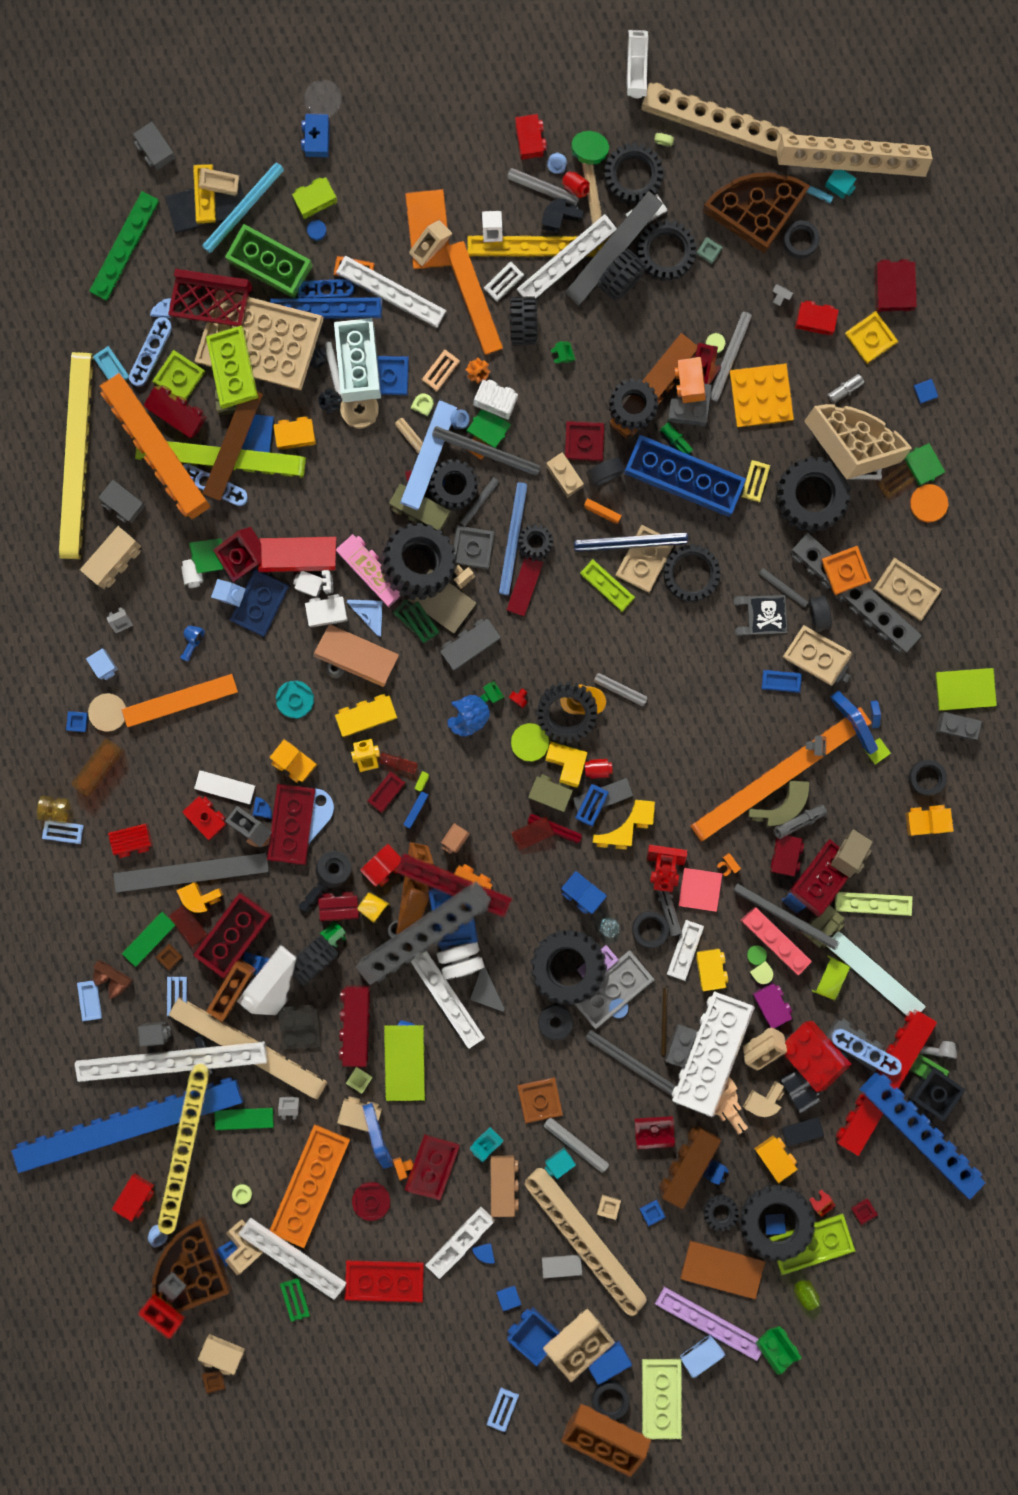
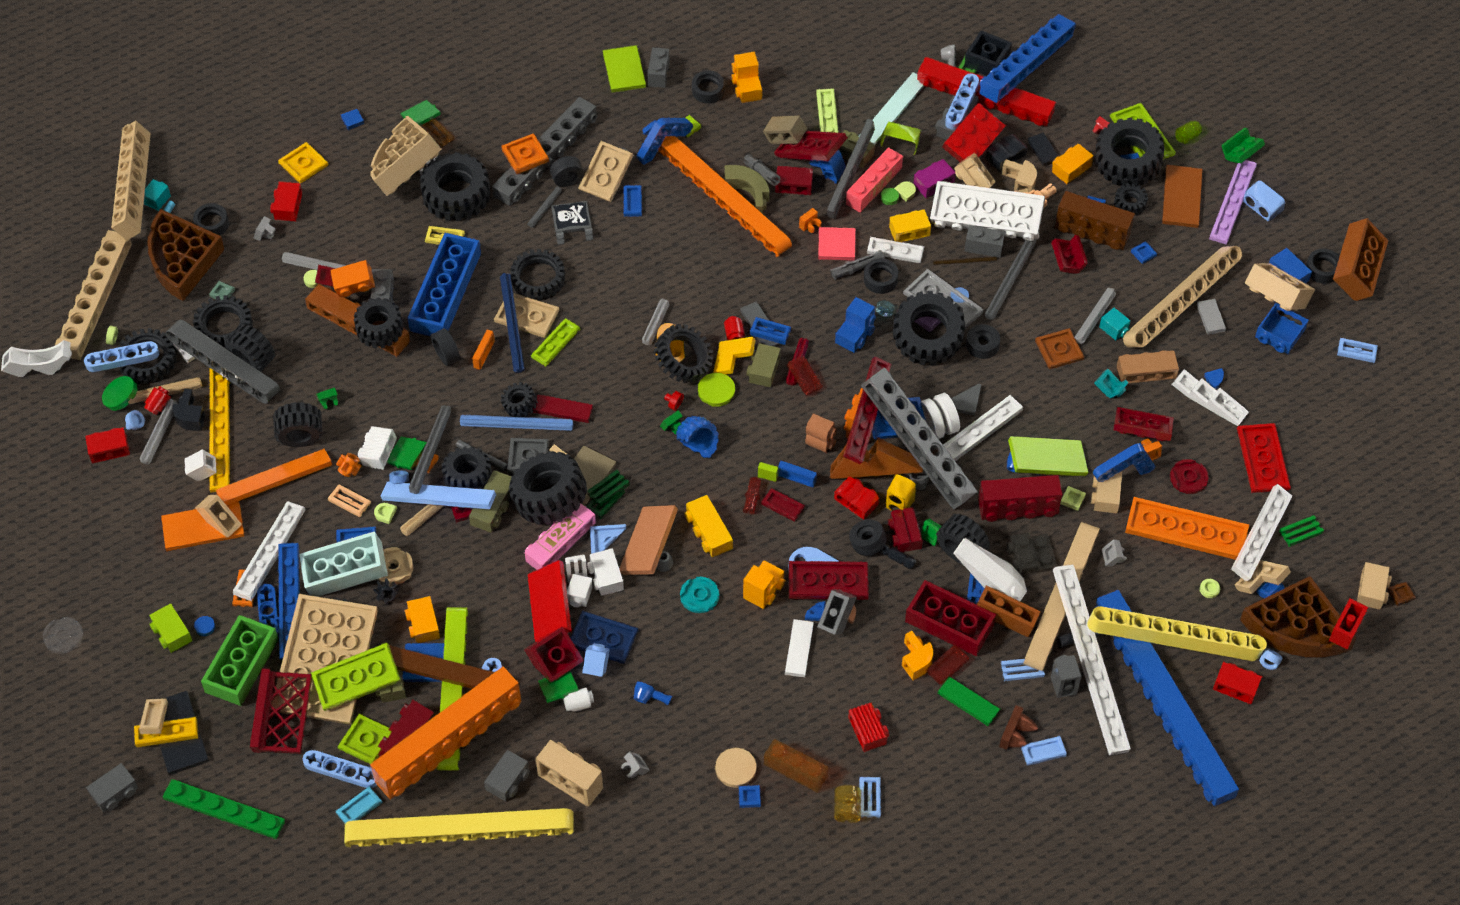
camera: 90 degrees left, 30 degrees down
(102, 664) = (685, 773): light blue brick -> none
(161, 309) = (293, 763): light blue tile -> none
(169, 957) = (983, 680): reddish brown tile -> none
(172, 1286) = (1316, 622): dark grey tile -> none
(179, 700) = (715, 698): orange tile -> none
(191, 872) = (893, 671): dark grey tile -> none
(204, 817) = (833, 659): red brick -> none
(243, 207) = (181, 692): medium azure axle -> none
(244, 1118) = (1133, 590): green tile -> none
(320, 145) = (103, 633): blue brick -> none
(333, 366) = (358, 593): white bar -> none
(365, 755) = (748, 520): yellow brick -> none
(470, 644) = (626, 445): dark grey brick -> none
(508, 287) = (272, 459): white tile -> none
(508, 1298) = (1251, 355): blue tile -> none
(564, 474) = (449, 382): tan brick -> none
(567, 257) = (232, 399): white plate -> none
(584, 441) = (414, 373): dark red tile -> none
(608, 1207) = (1146, 284): tan plate -> none
(627, 147) = (121, 353): none -> light blue beam
(641, 814) = (794, 303): yellow arch -> none
(661, 1398) = (1310, 230): yellowish green tile -> none
(665, 872) = (813, 269): red tile -> none
(676, 438) = (408, 299): green axle -> none
(761, 395) = (362, 238): light orange plate -> none
(818, 746) = (690, 157): dark grey tile -> none
(846, 388) = (353, 176): light grey axle -> none
(864, 1211) = (1104, 100): dark red tile -> none
(895, 285) = (254, 146): dark red brick -> none
(907, 589) = (537, 116): tan tile -> none
(929, 503) = (456, 108): orange tile -> none

